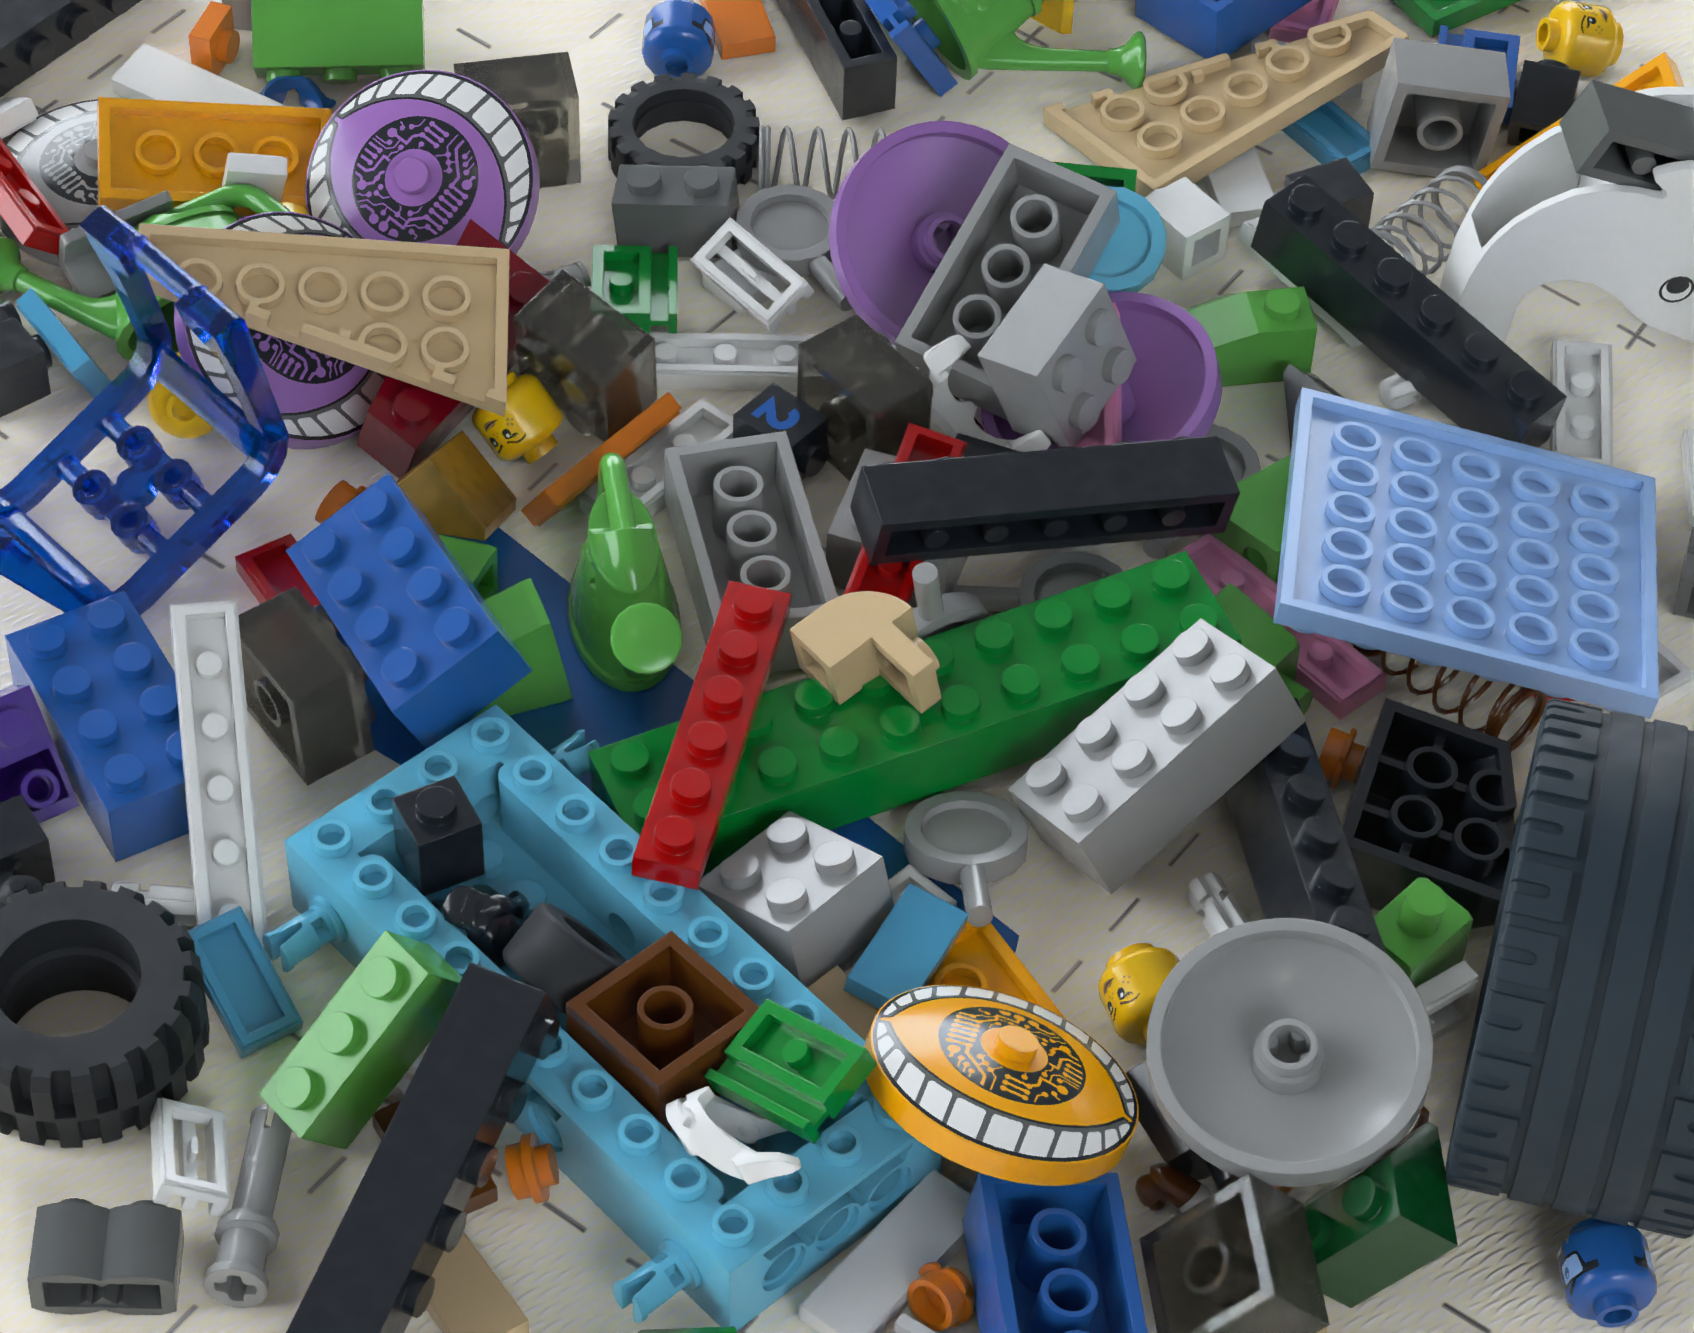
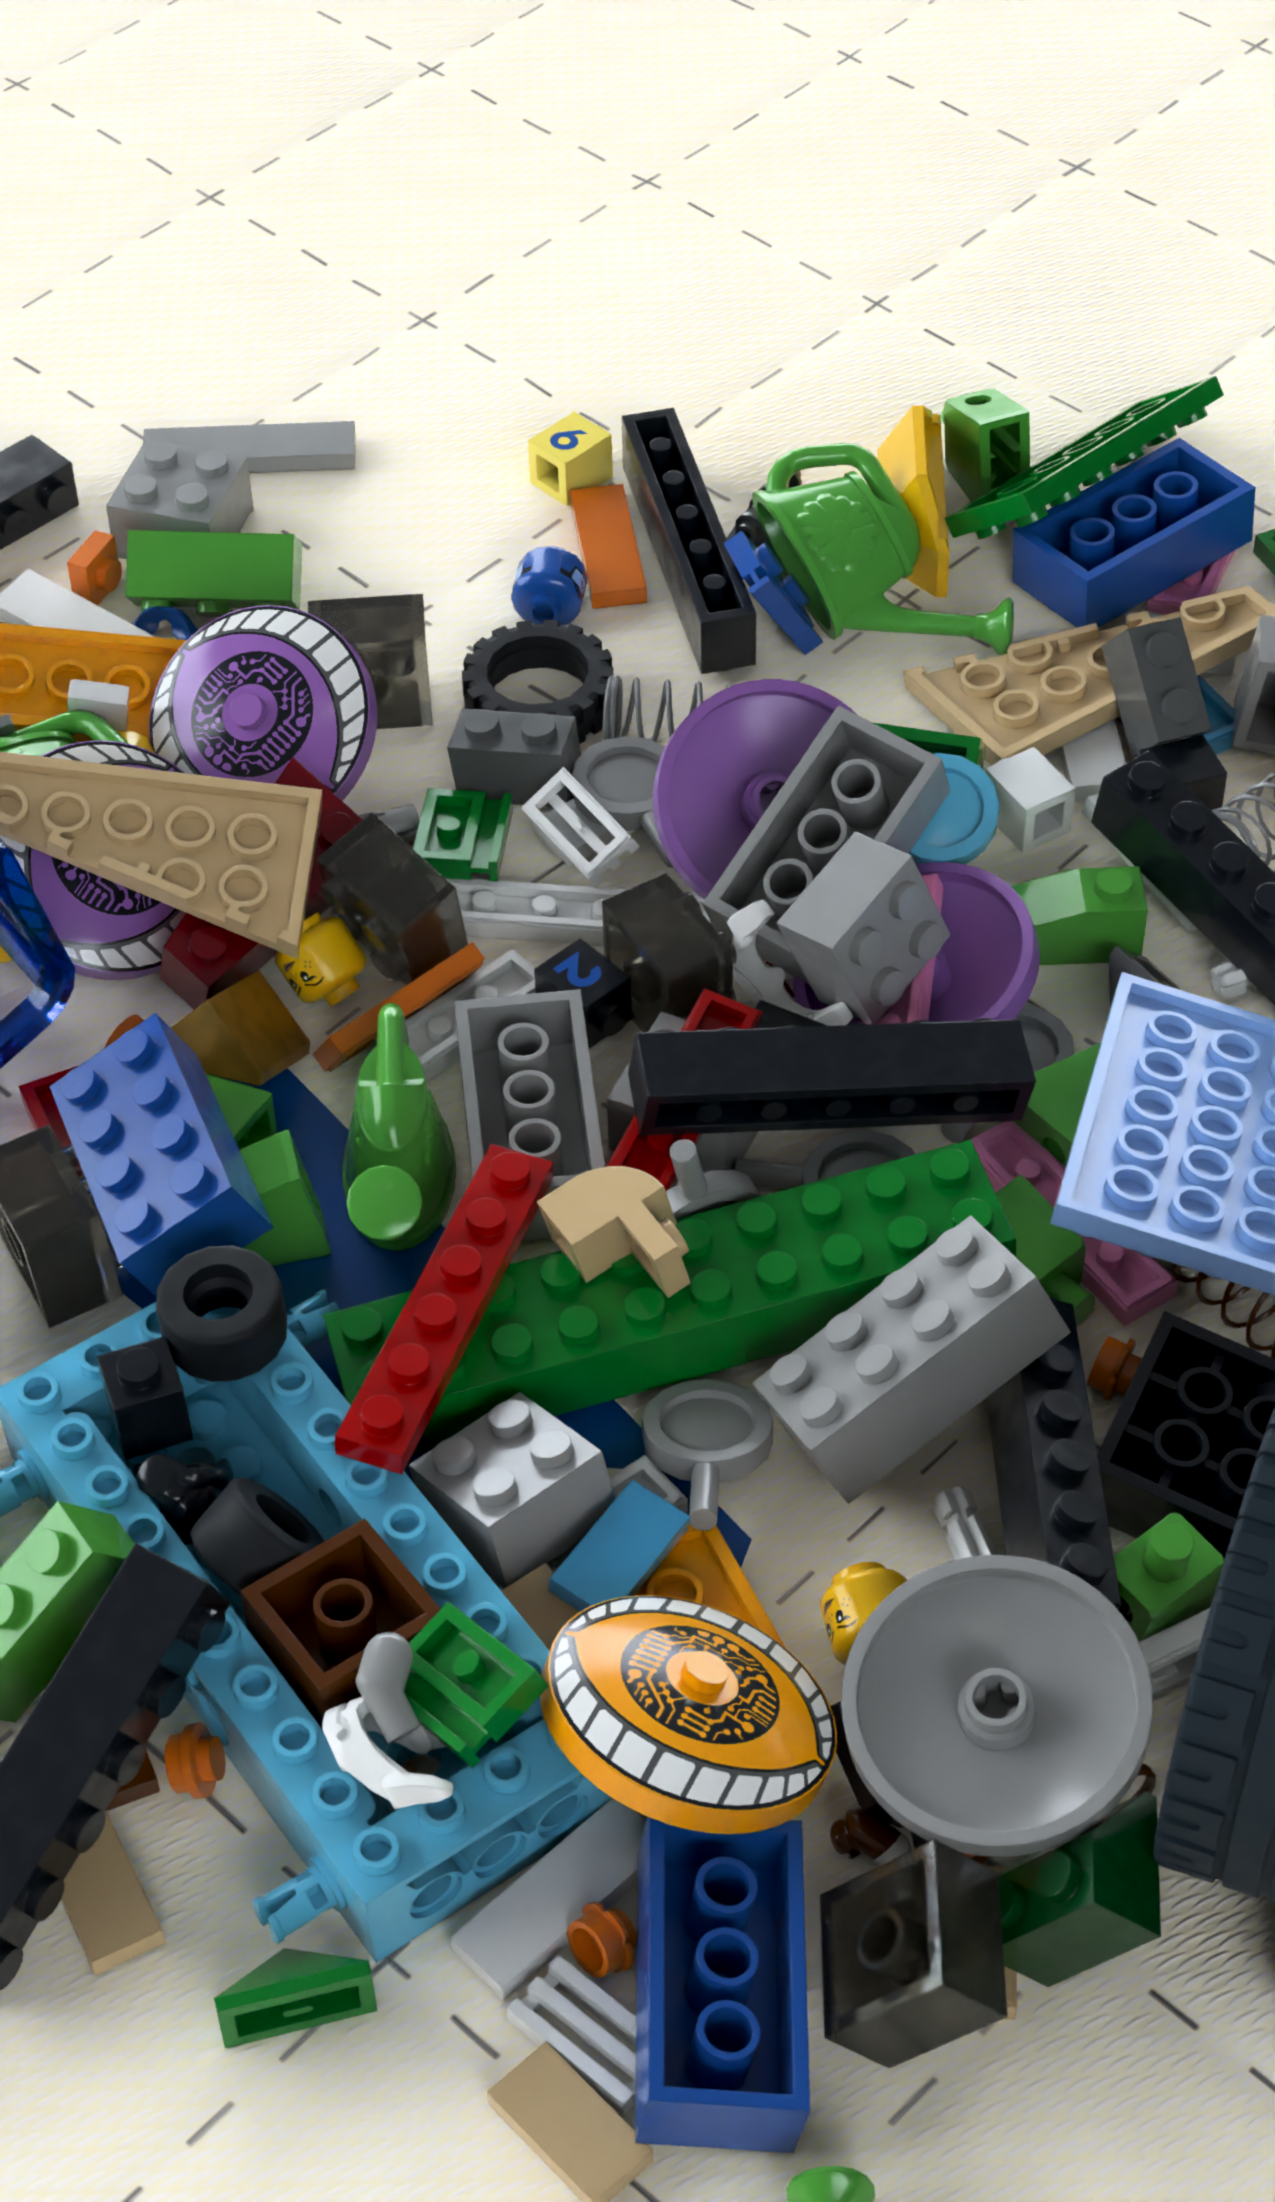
camera: 10 degrees right, 0 degrees up
(500, 720) = (216, 1280): none -> black tyre
(720, 1072) = (382, 1684): none -> light grey arm
(1296, 111) = (1156, 685): none -> dark grey brick

